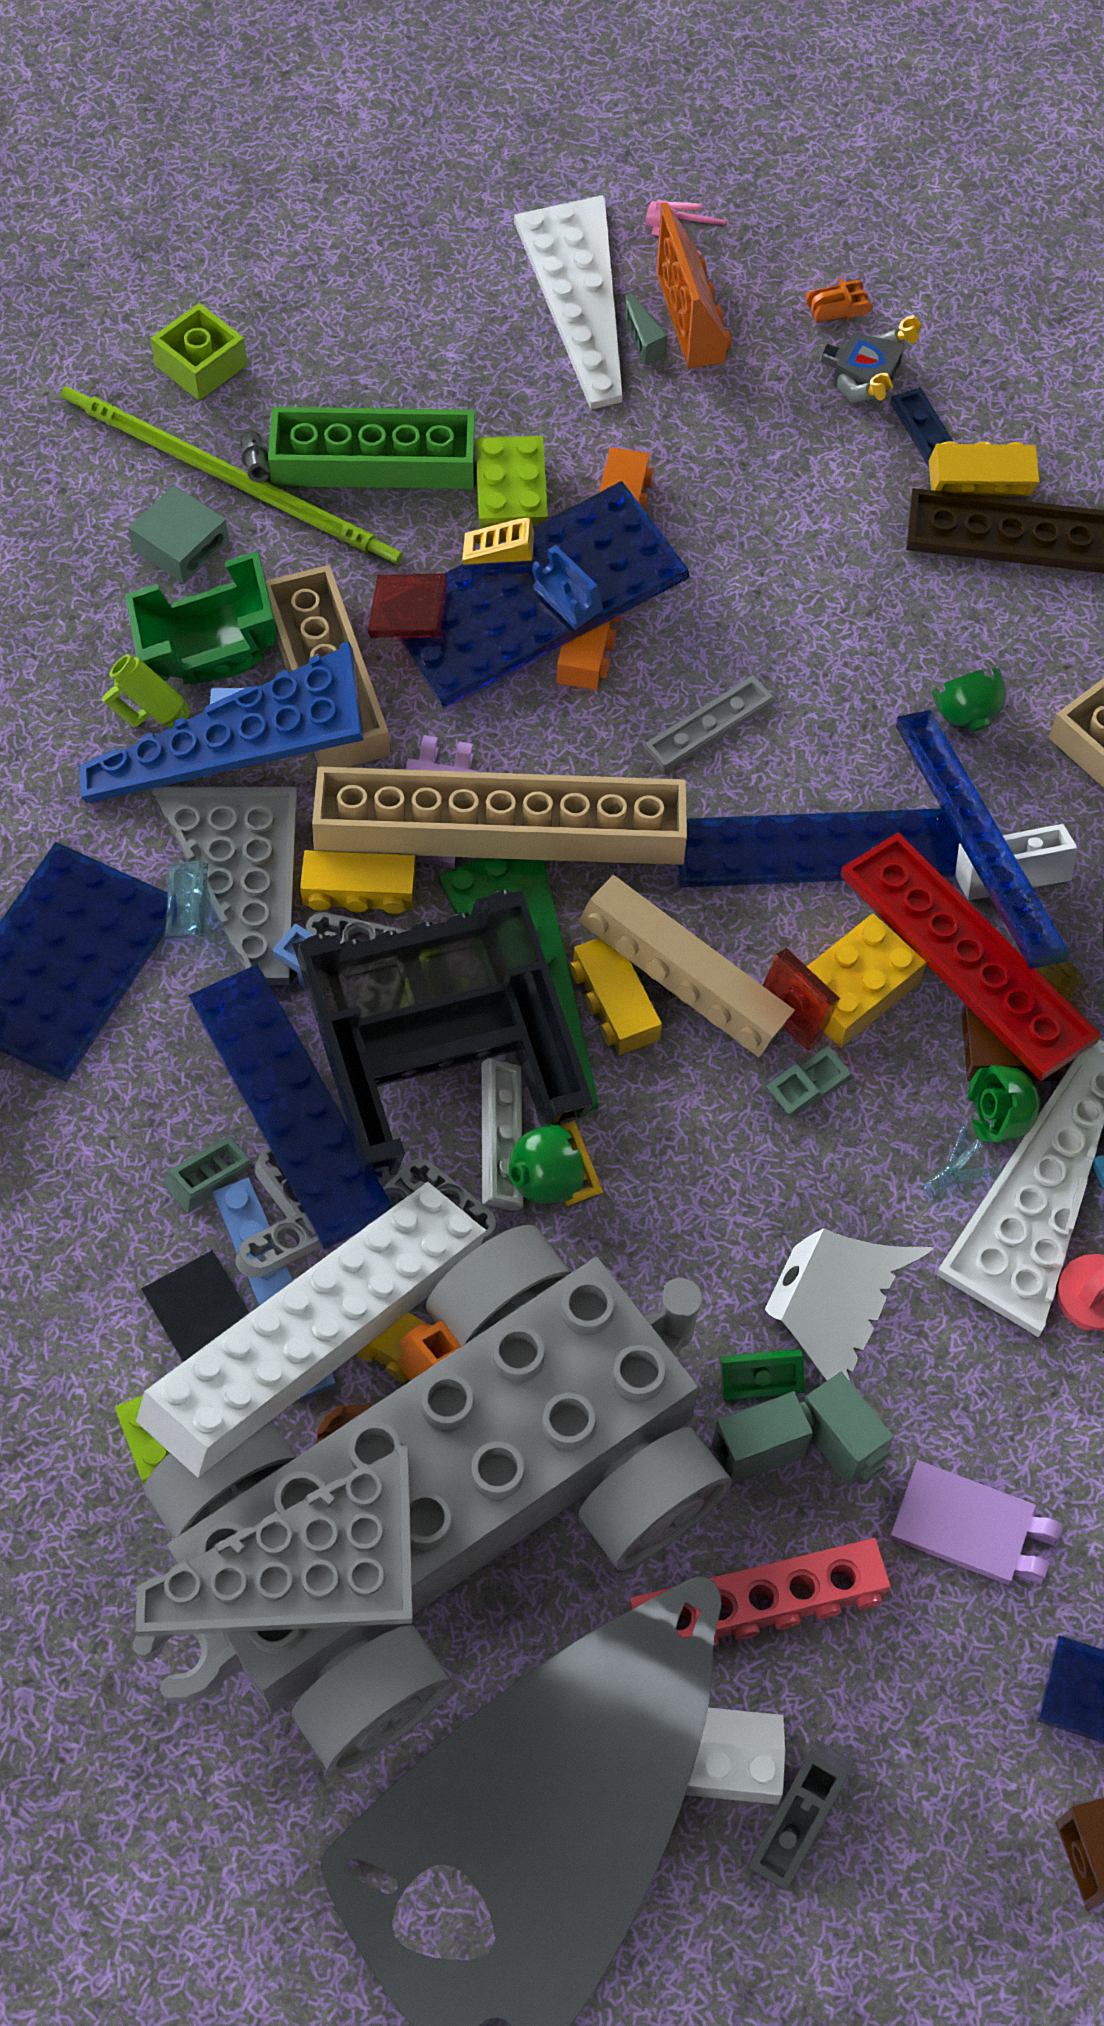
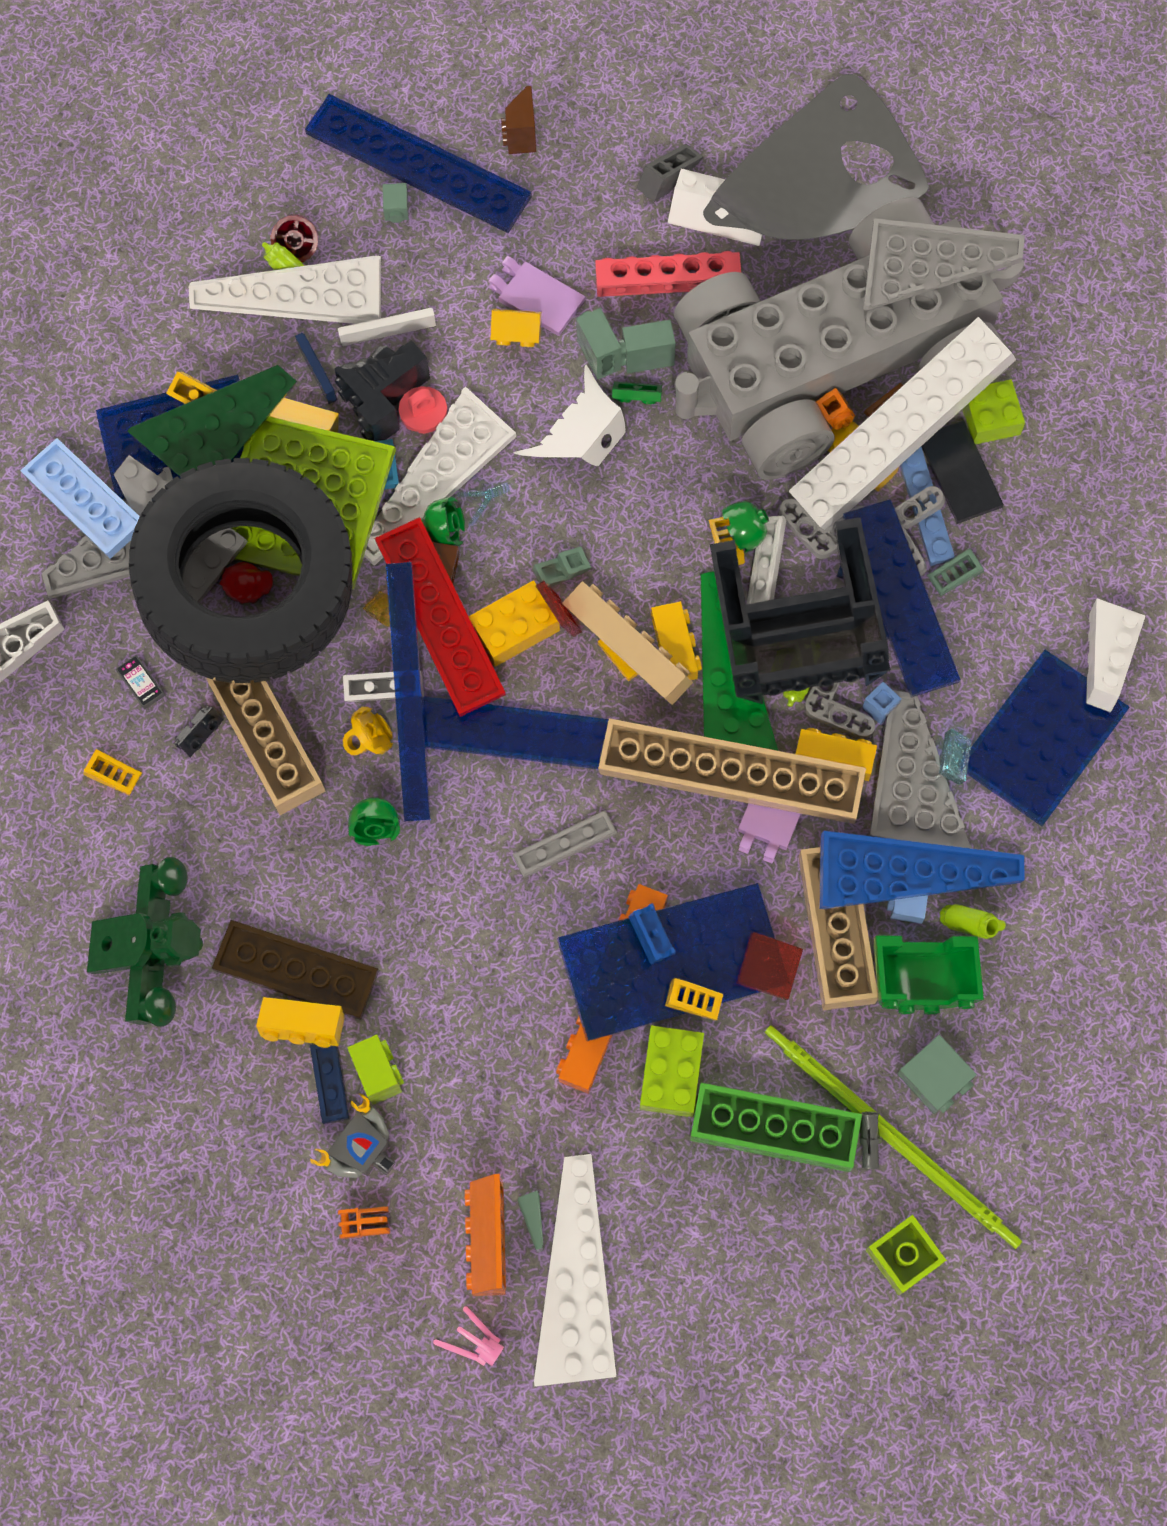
camera: 165 degrees left, 10 degrees up
(875, 428) = (374, 1069): none -> lime brick
(991, 1447) = (516, 327): none -> yellow brick
(1014, 798) = (370, 730): none -> yellow tile

